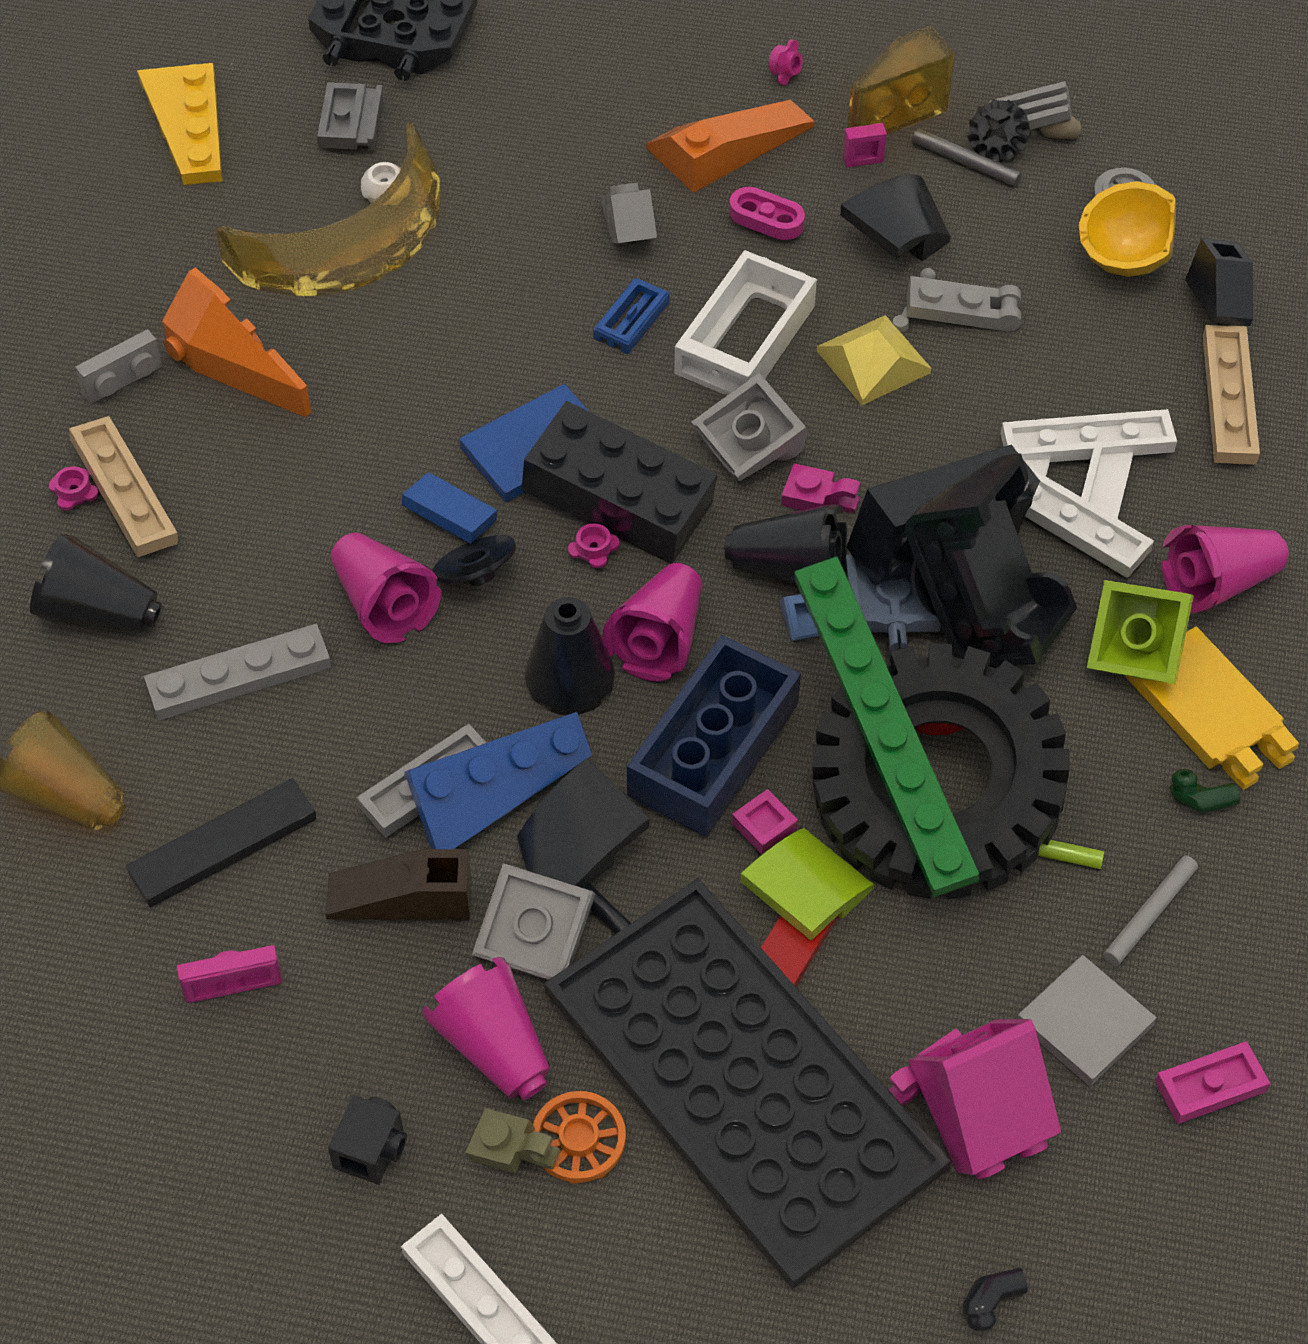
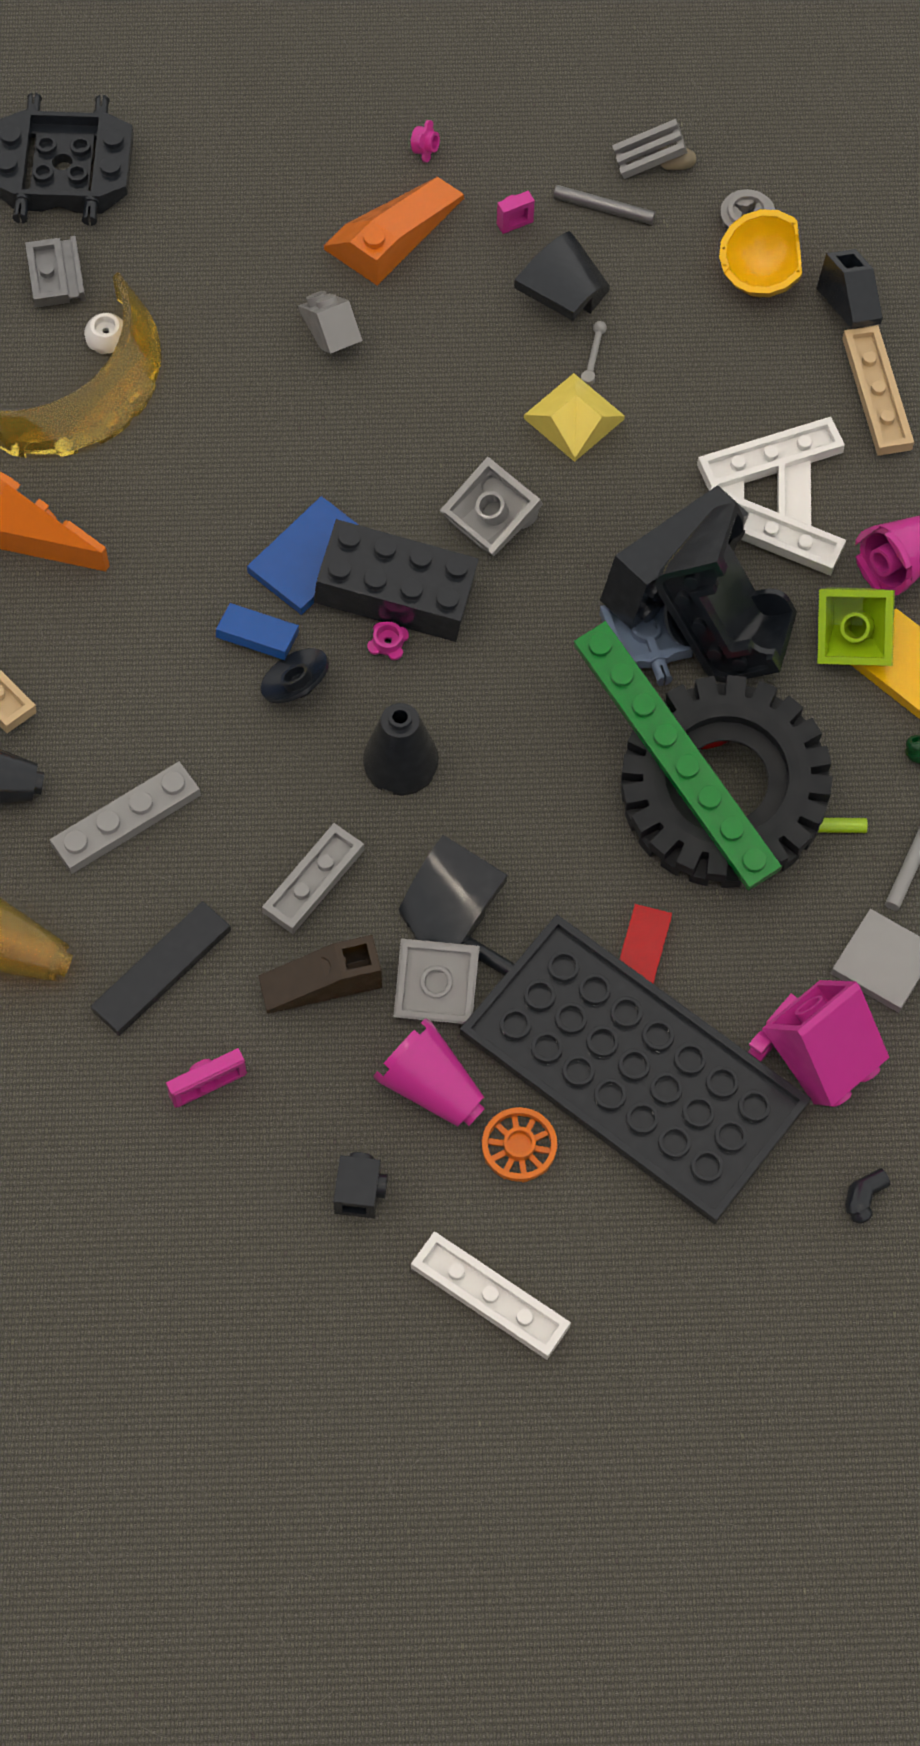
camera: 15 degrees left, 10 degrees up
(385, 587) = (227, 716): dark pink cone -> none
(483, 783) = (362, 871): blue wing -> none
(506, 1139) = (465, 1162): olive plate -> none
(618, 336) = (351, 440): blue tile -> none
(656, 624) = (464, 701): dark pink cone -> none
(713, 735) = (536, 789): dark blue brick -> none
(747, 279) = (453, 362): white piece -> none
(764, 821) = (594, 853): dark pink plate -> none
(766, 213) = (449, 295): dark pink plate -> none
(788, 542) = (553, 610): black cone -> none
(797, 618) = (574, 668): medium blue slope -> none
(806, 882) = (641, 897): lime slope -> none
(815, 488) = (555, 549): dark pink plate -> none
(904, 83) = (539, 147): clear yellow slope -> none
(964, 303) = (637, 349): light grey plate -> none
(1016, 130) = (643, 174): black gear -> none

